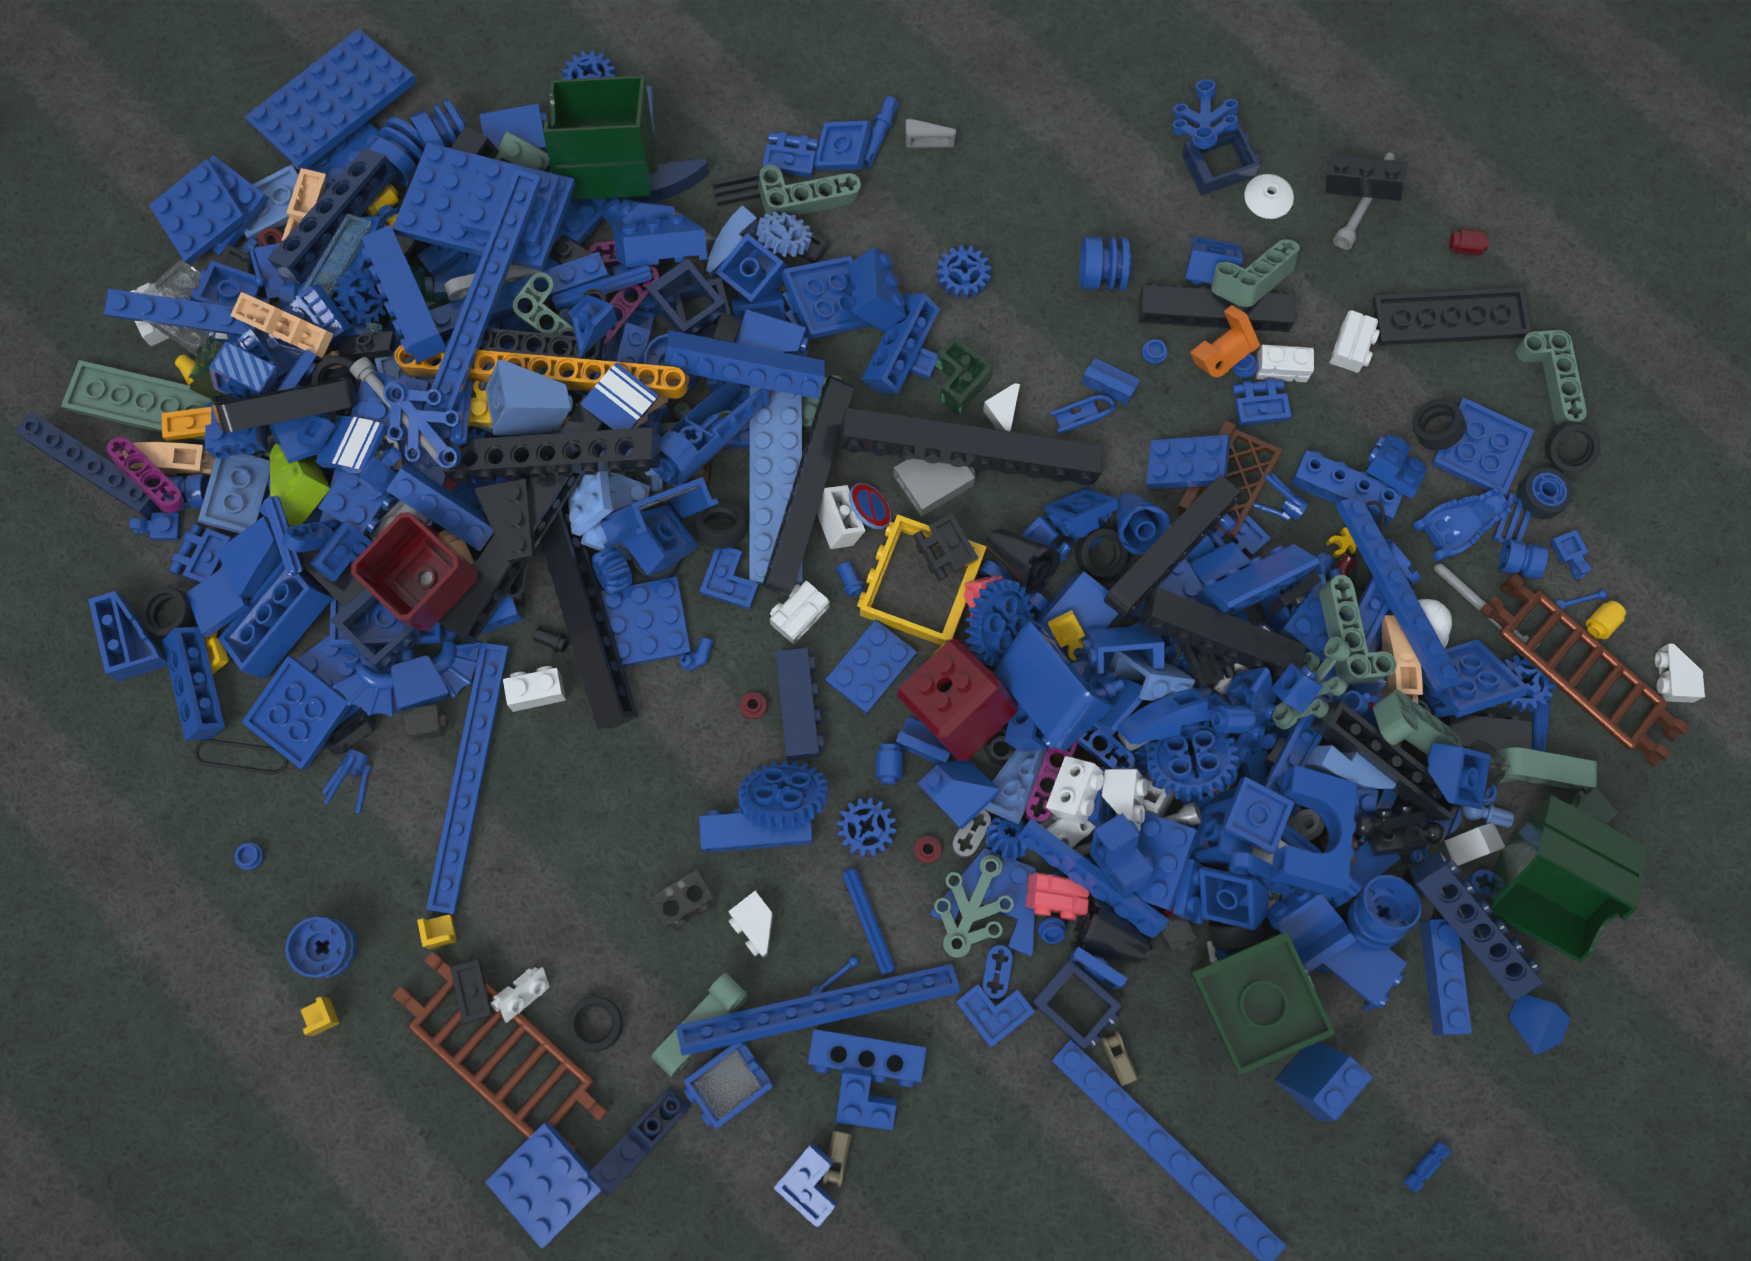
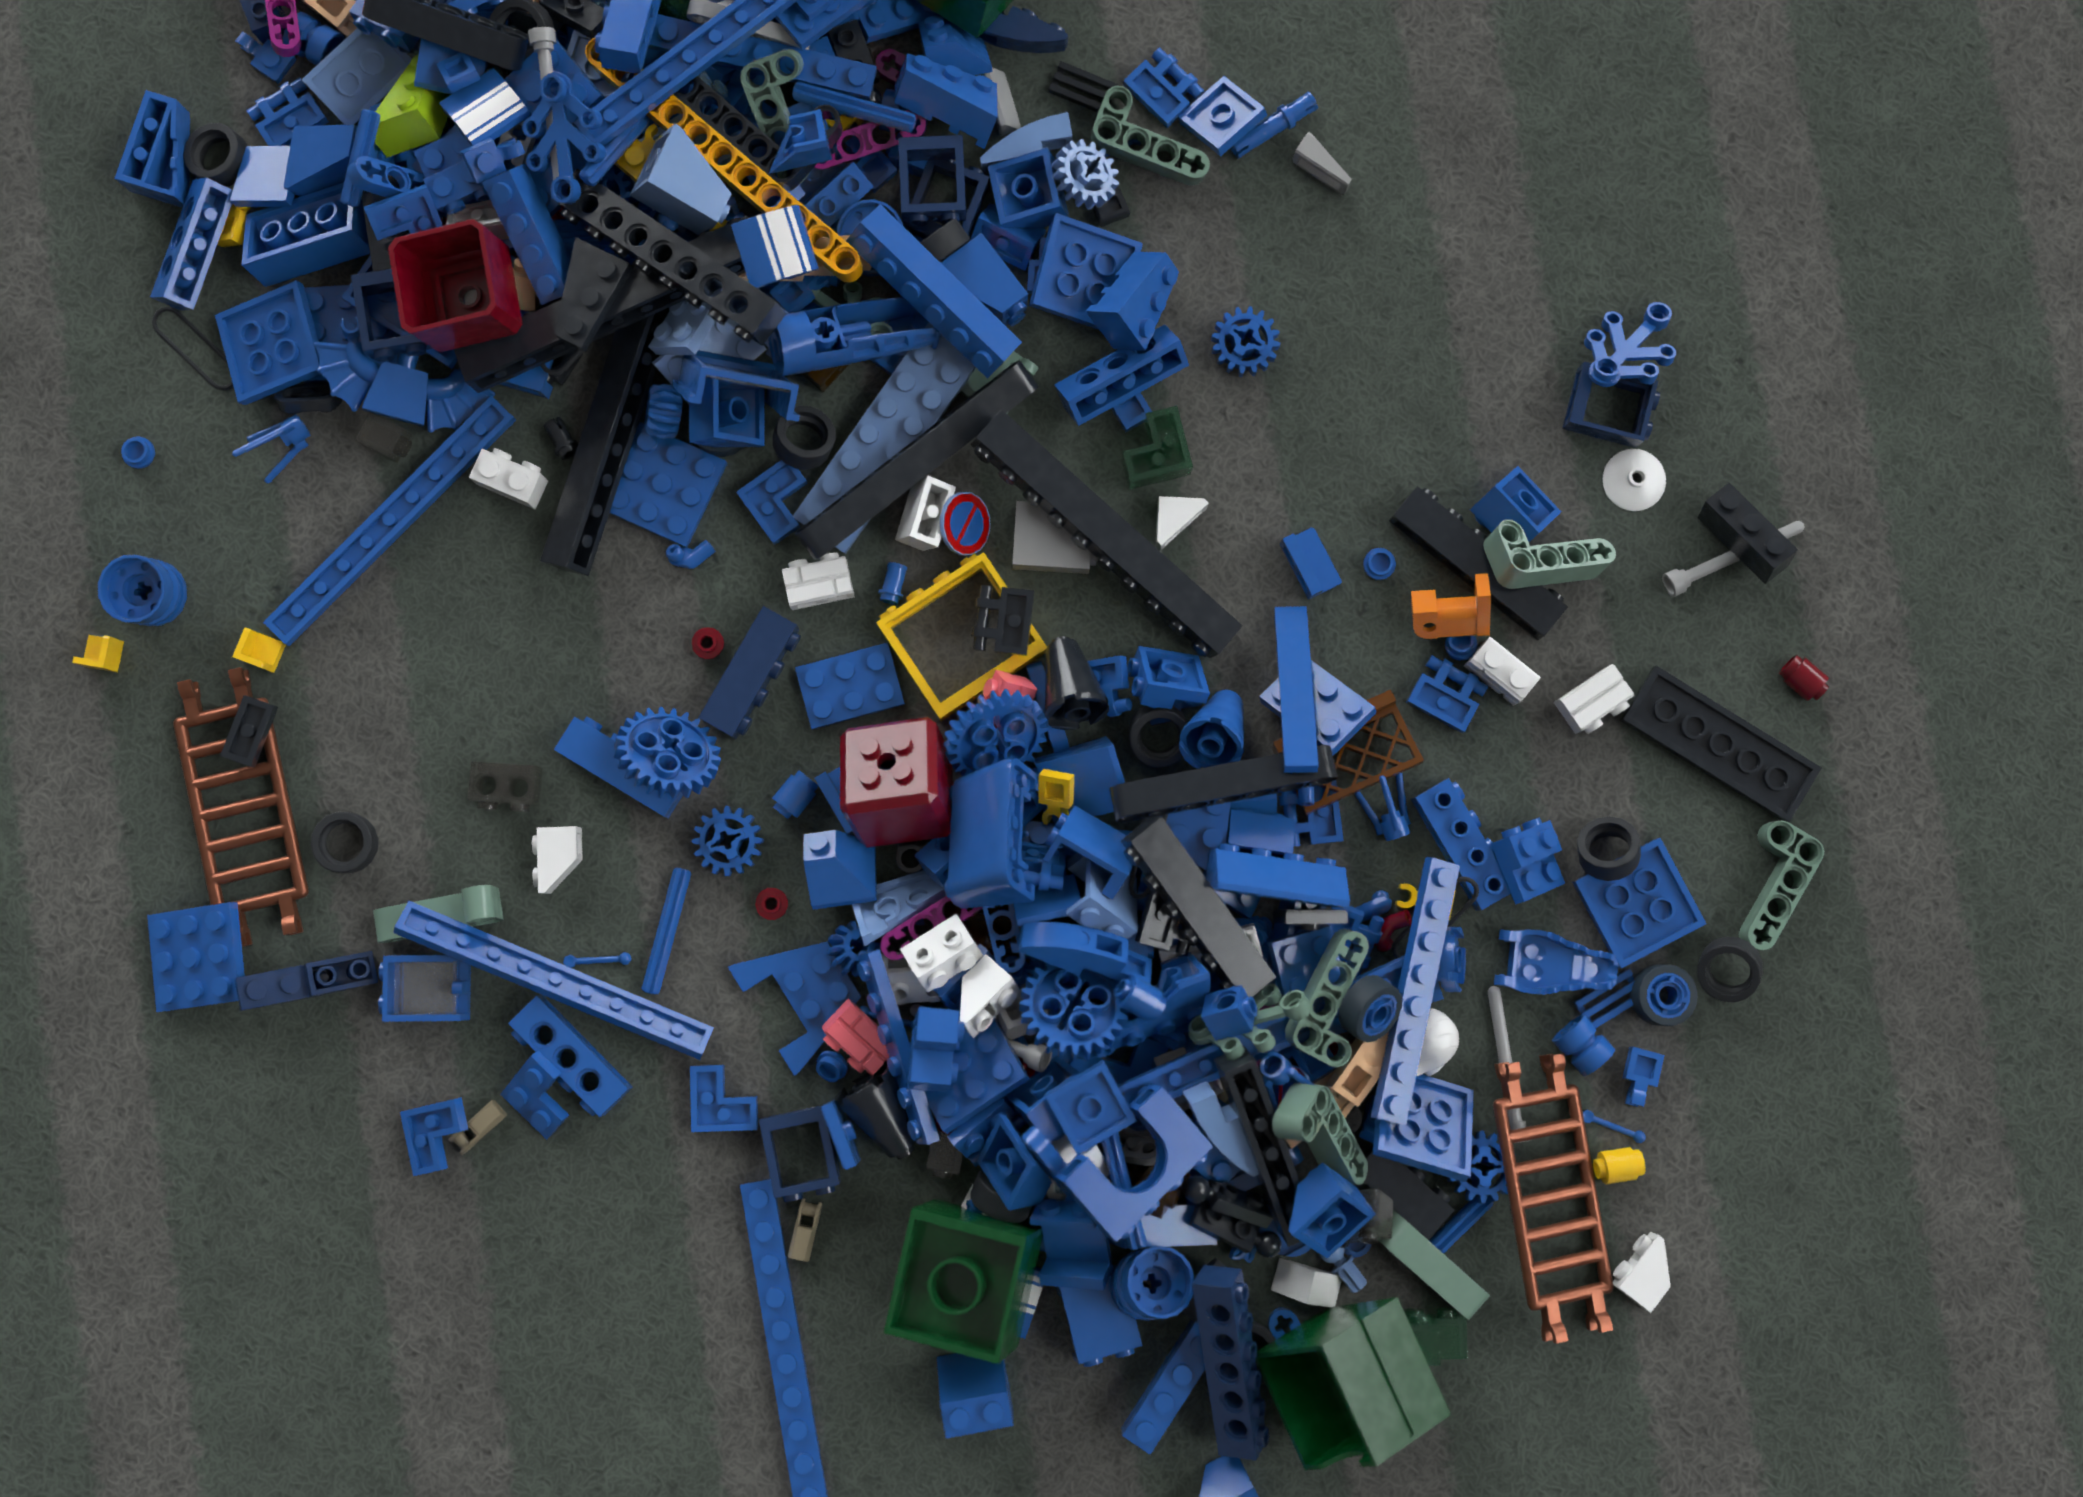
camera: 35 degrees right, 10 degrees up
(528, 988) = (309, 764): white hinge -> none
(971, 910) = (767, 991): sand green plant -> none
(977, 835) = (825, 927): light grey beam -> none
(1004, 973) = (756, 1072): blue beam -> none
(1088, 413) = (1260, 580): blue piece -> none
(1104, 263) = (1394, 435): blue wheel -> none
(1170, 459) = (1295, 690): none -> blue tile
(1382, 621) = (1370, 1008): none -> black wheel

